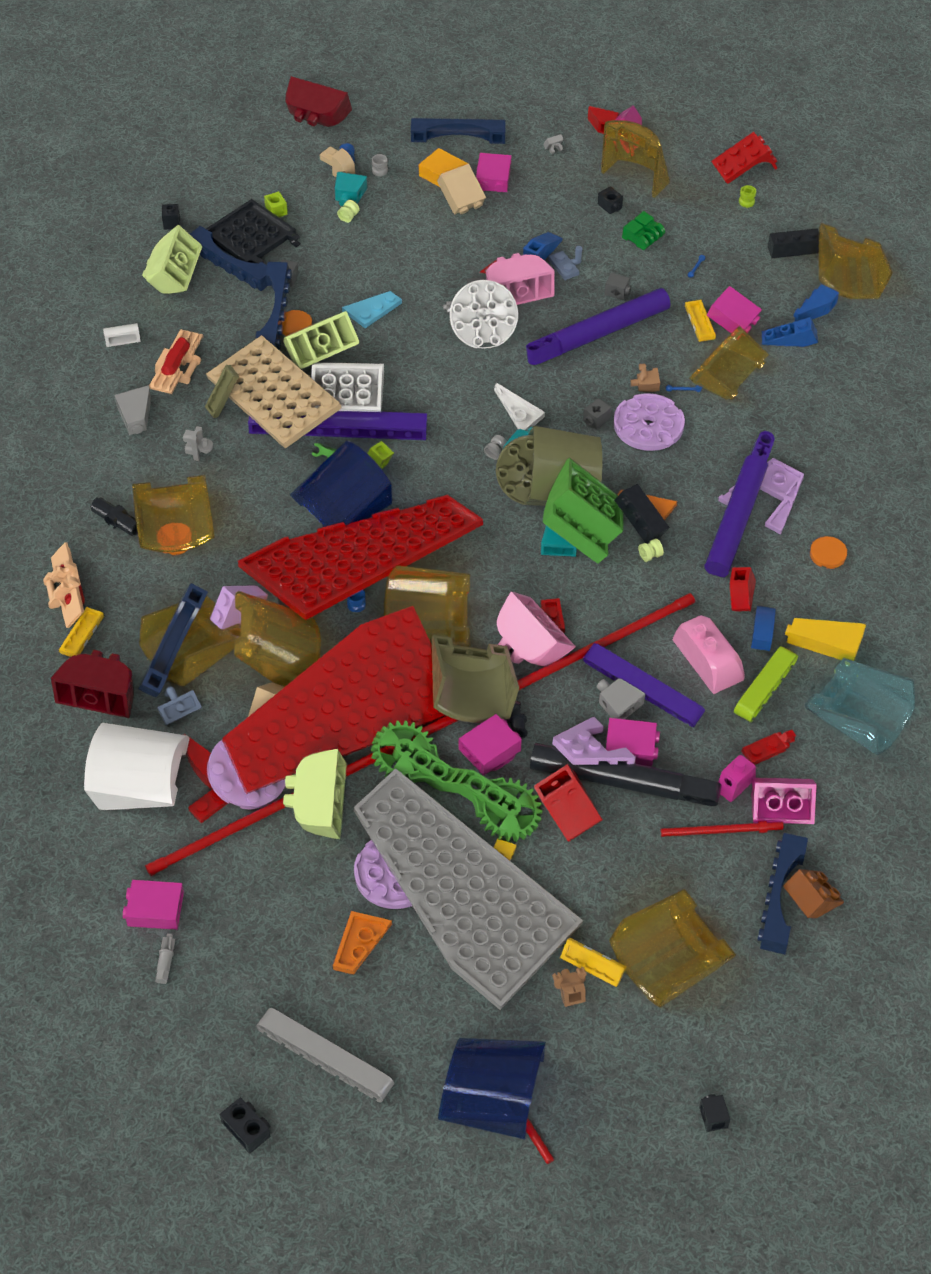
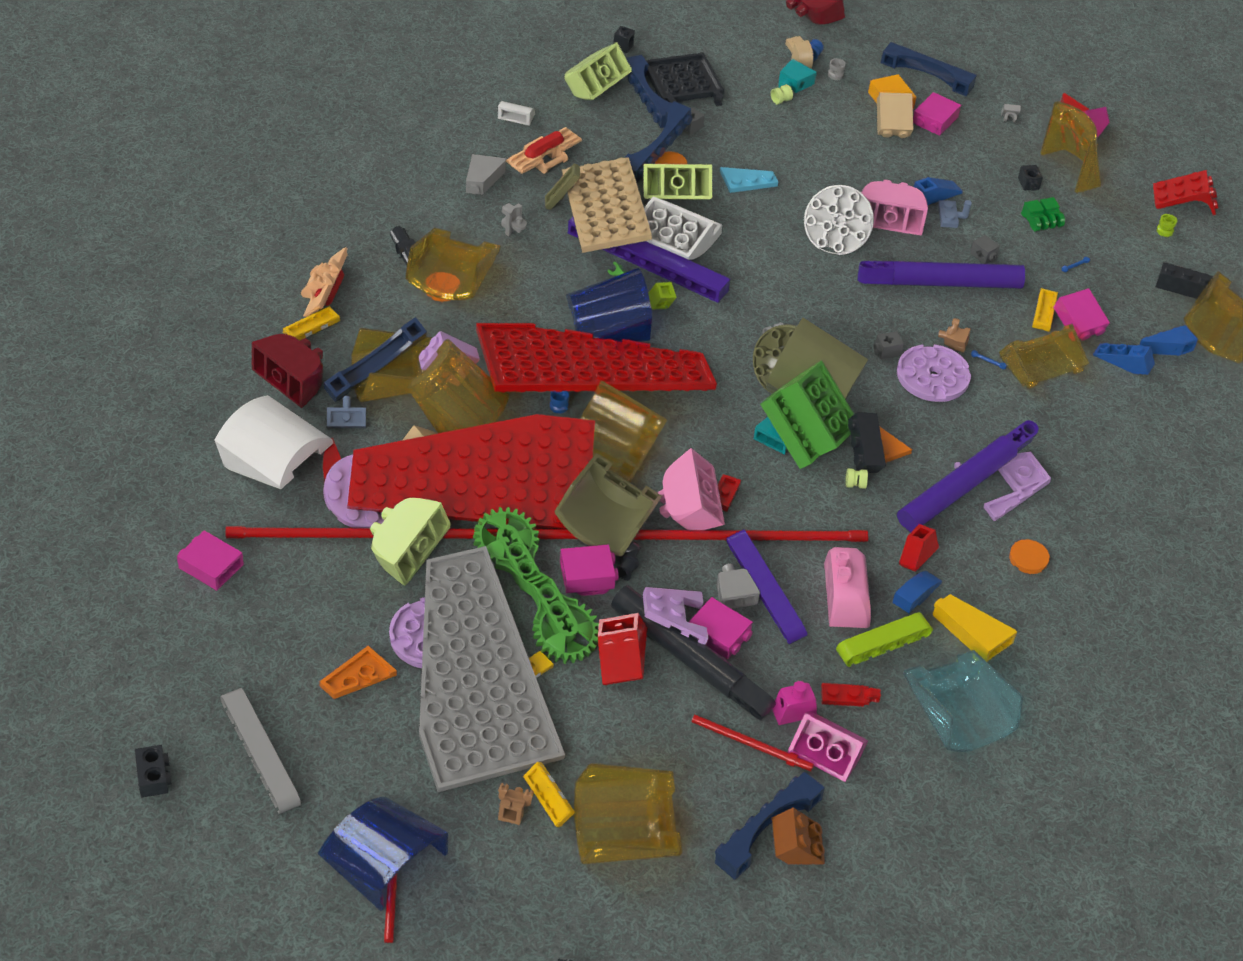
camera: 25 degrees right, 5 degrees down
(165, 958) = (188, 607): light grey piece -> none
(207, 806) = (311, 506): red plate -> none
(276, 204) = (721, 64): lime brick -> none
(521, 412) = (820, 312): white wing -> none

